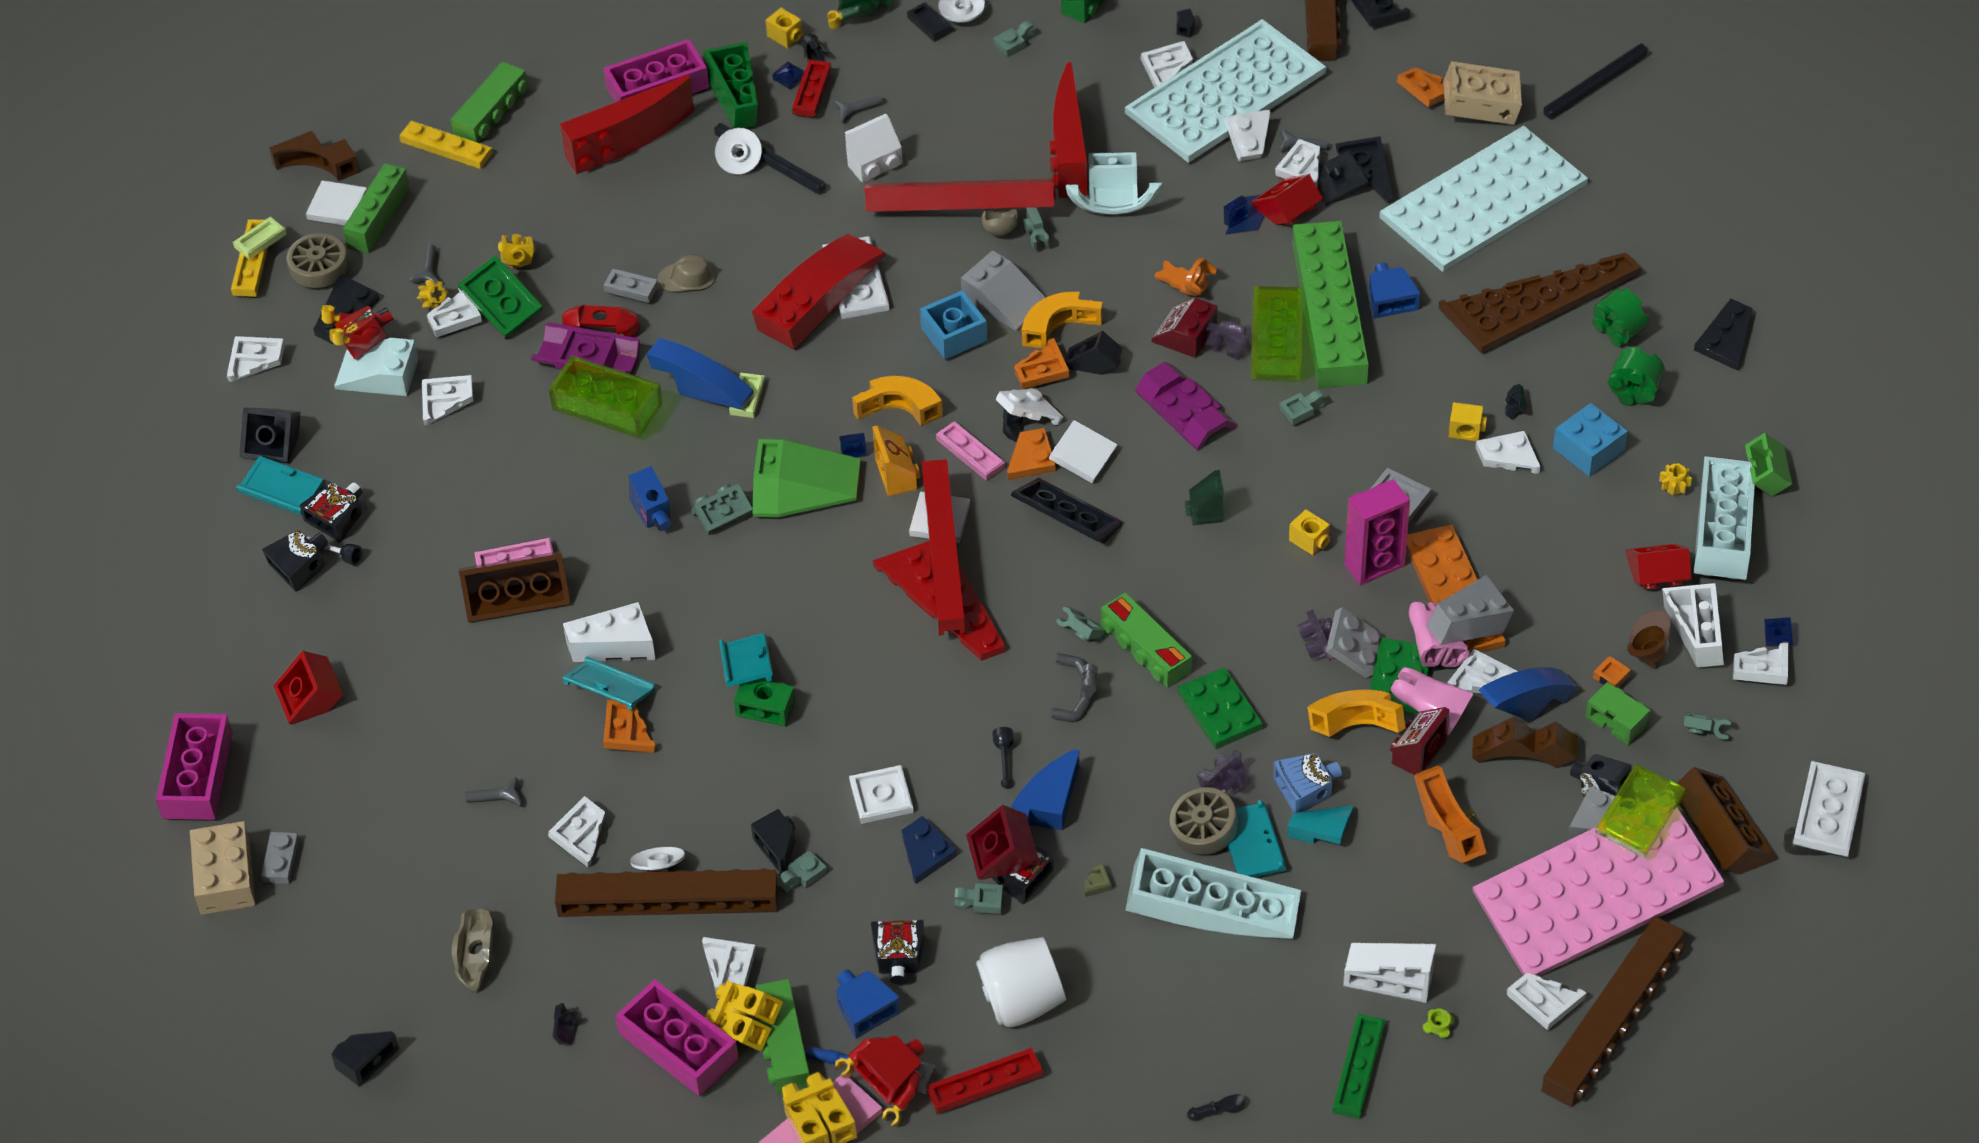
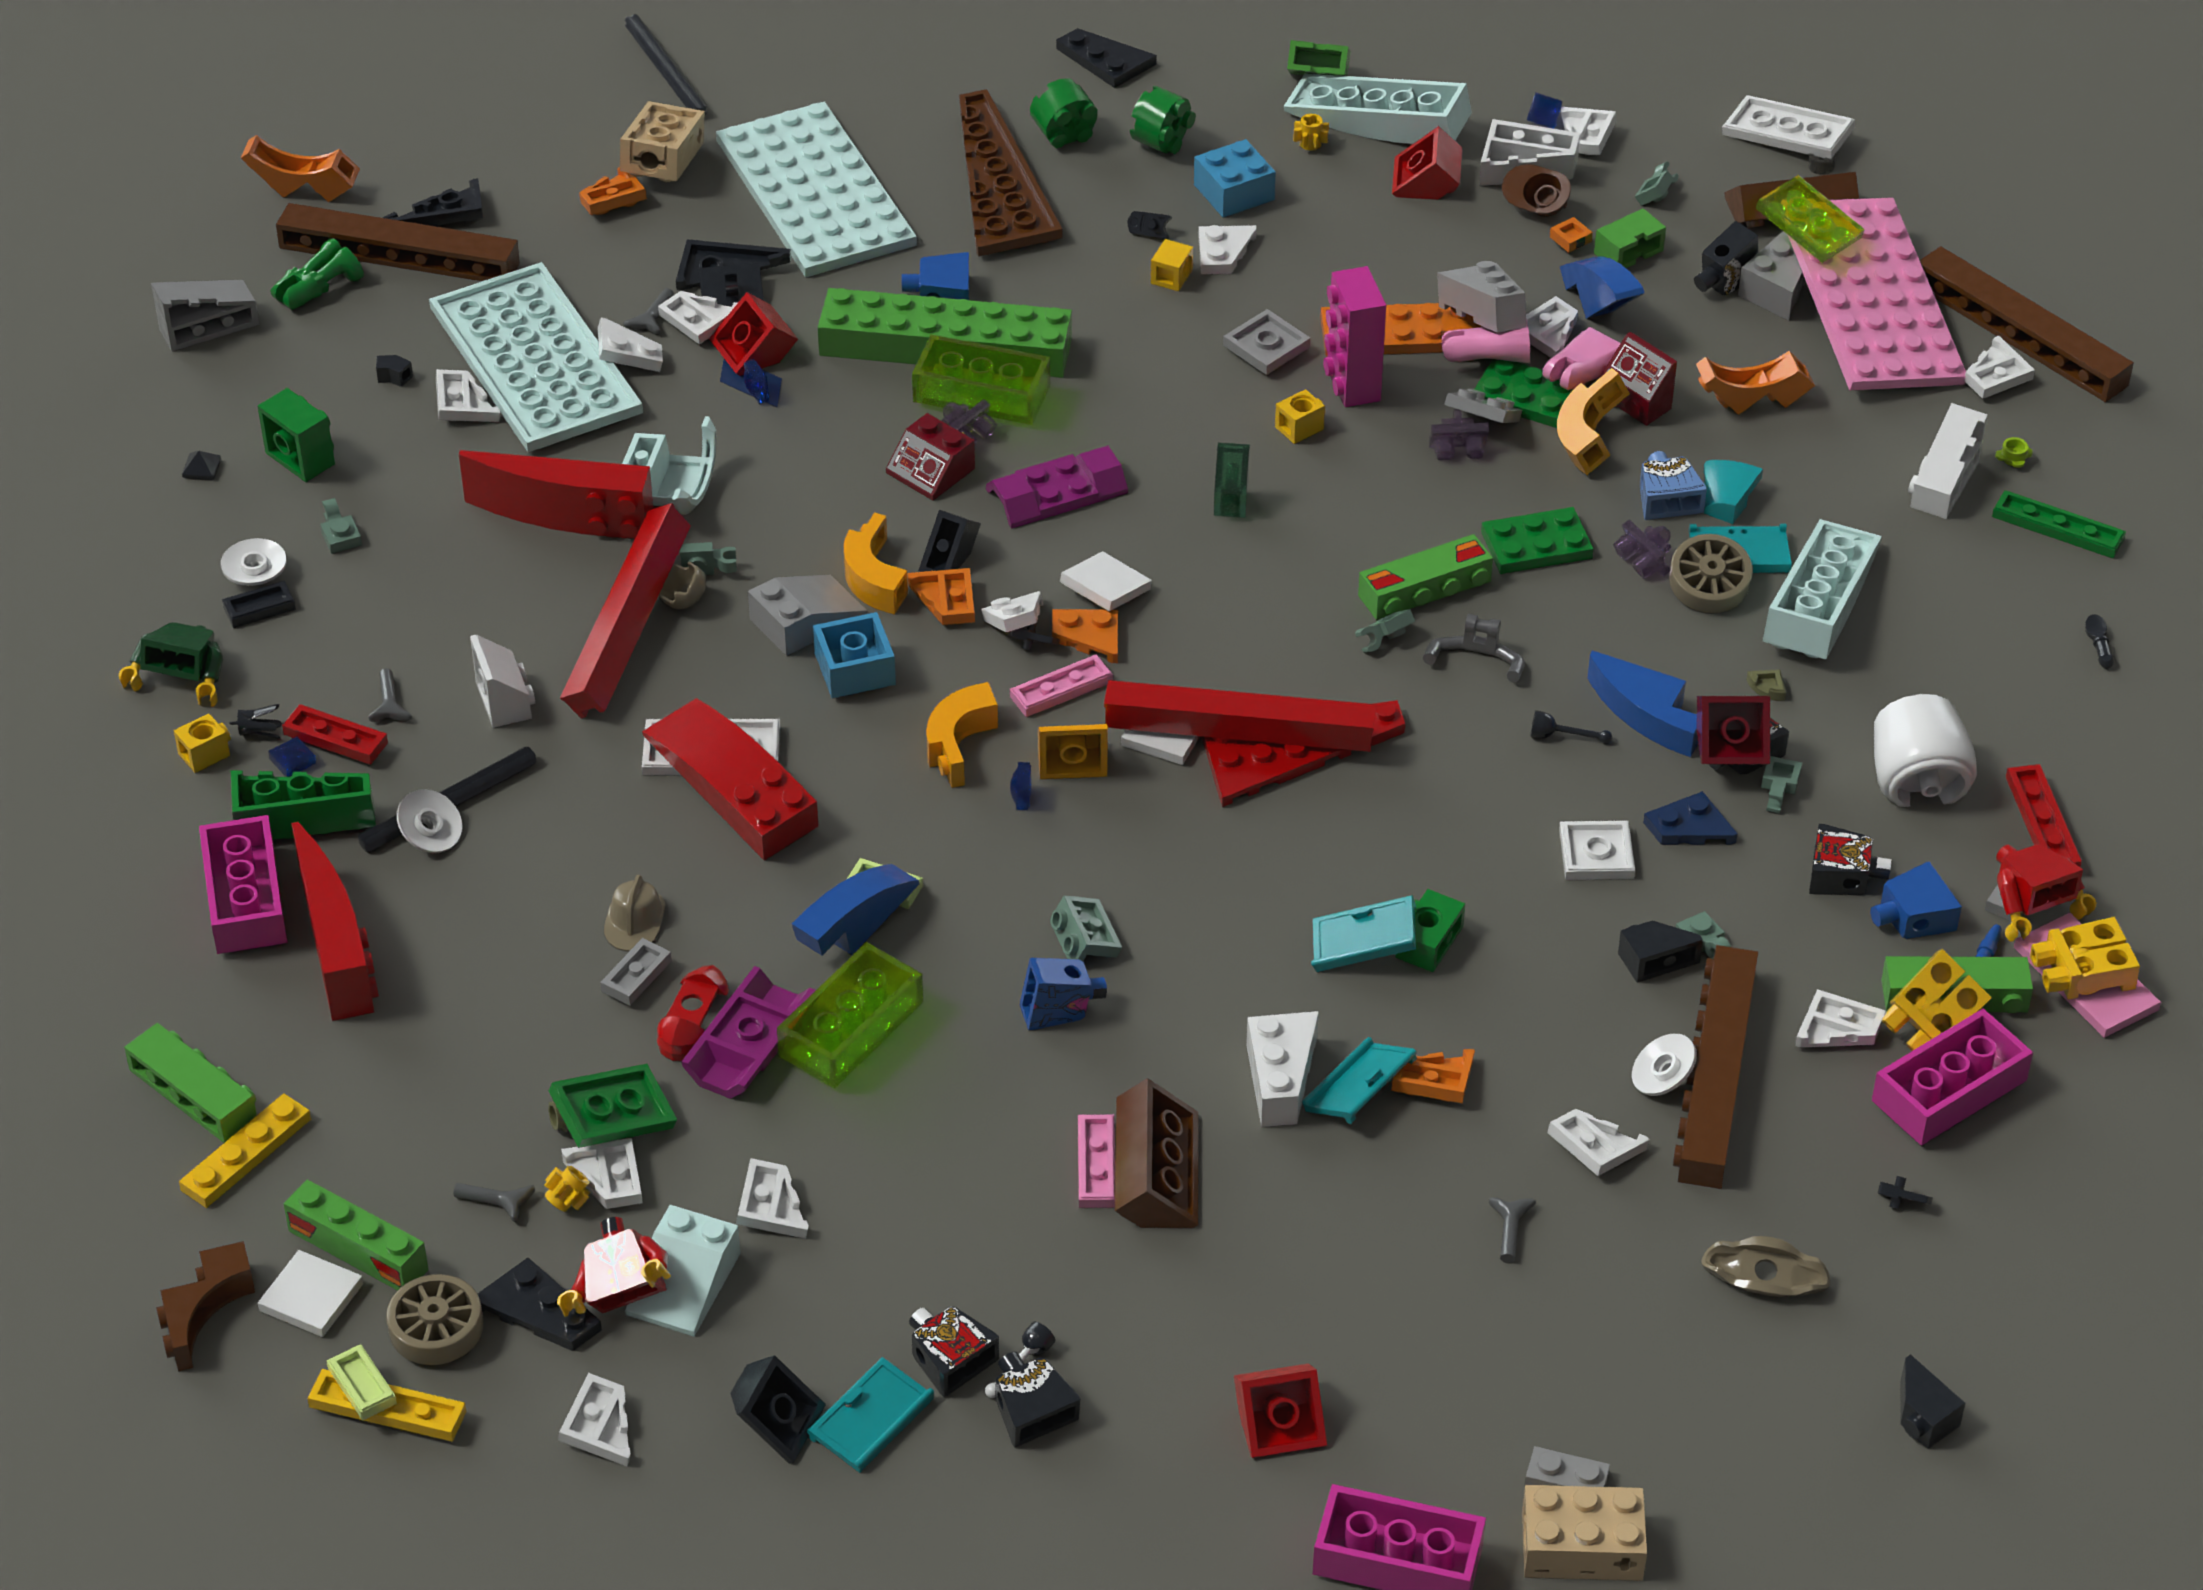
camera: 80 degrees left, 5 degrees down
(516, 253) = (516, 1081): yellow hand -> none
(801, 477) = (1059, 836): bright green wedge -> none
(1068, 509) = (1193, 611): black slope -> none
(1187, 281) = (853, 442): orange hair -> none
(1300, 408) = (1098, 390): sand green plate -> none
(1513, 738) = (1661, 306): reddish brown arch -> none

